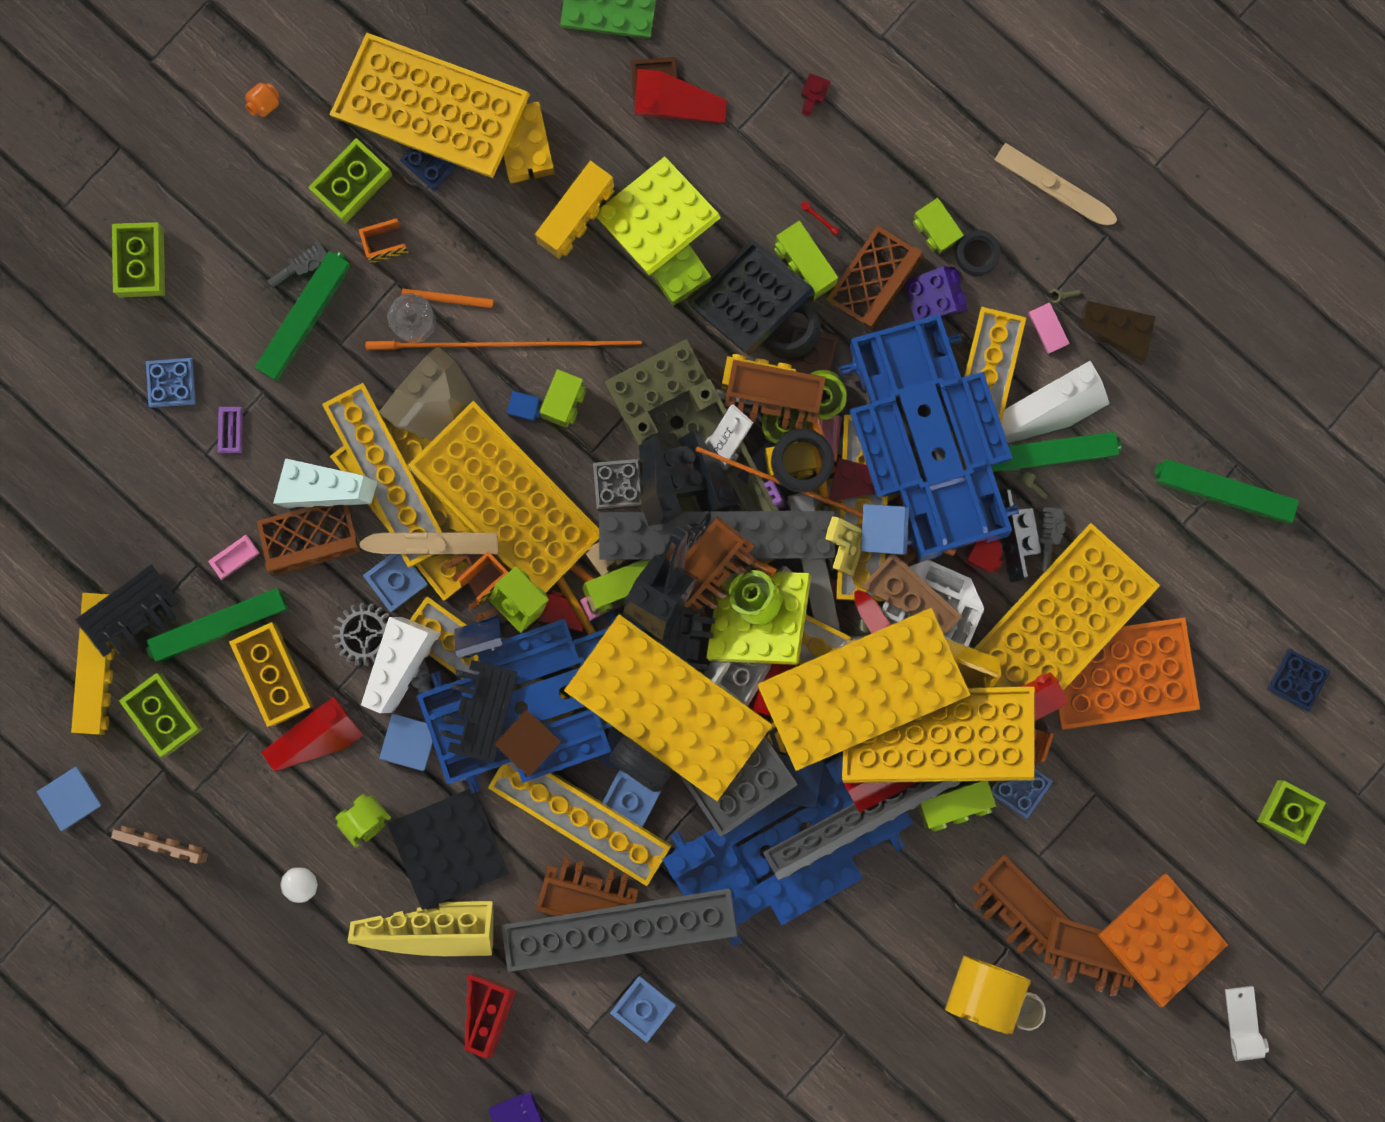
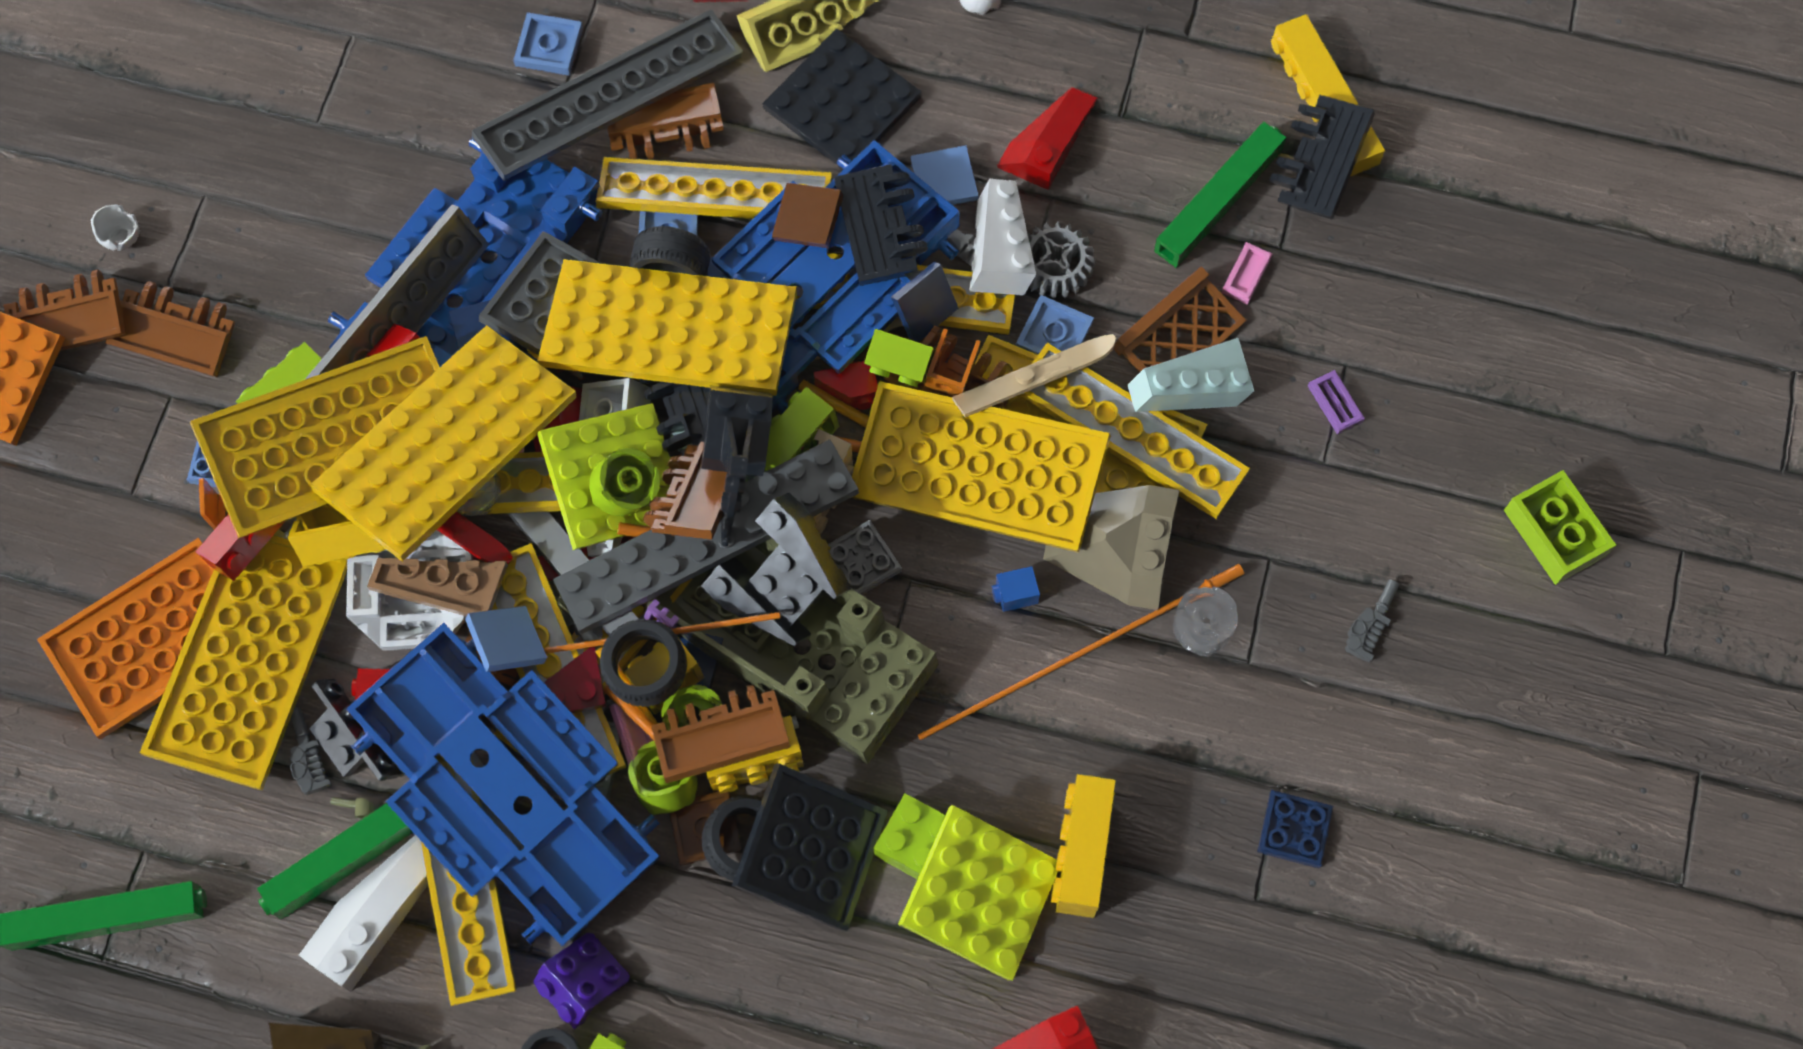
camera: 155 degrees right, 15 degrees down
(161, 715) = (1223, 76): lime brick -> none
(170, 382) = (1434, 419): medium blue tile -> none
(261, 99) = (1541, 790): orange head -> none
(271, 674) = (1131, 169): yellow brick -> none
(303, 315) = (1332, 564): green brick -> none
(350, 181) = (1375, 744): lime brick -> none
(362, 820) = (948, 75): lime brick -> none
(379, 229) = (1299, 670): orange piece -> none
(429, 105) = (1335, 884): yellow plate -> none
(451, 298) = (1178, 672): orange bar -> none
(528, 147) = (1195, 903): yellow piece -> none
(563, 398) = (976, 615): lime brick -> none
(729, 435) = (752, 656): white door -> none
(805, 206) = (802, 1011): red hinge -> none
(805, 259) = (765, 929): lime brick -> none
(849, 541) = (547, 606): light yellow plate -> none
(889, 291) = (641, 959): dark orange fence -> none
(987, 995) = (164, 212): yellow brick -> none
(1048, 328) = (417, 1011): bright pink tile -> none

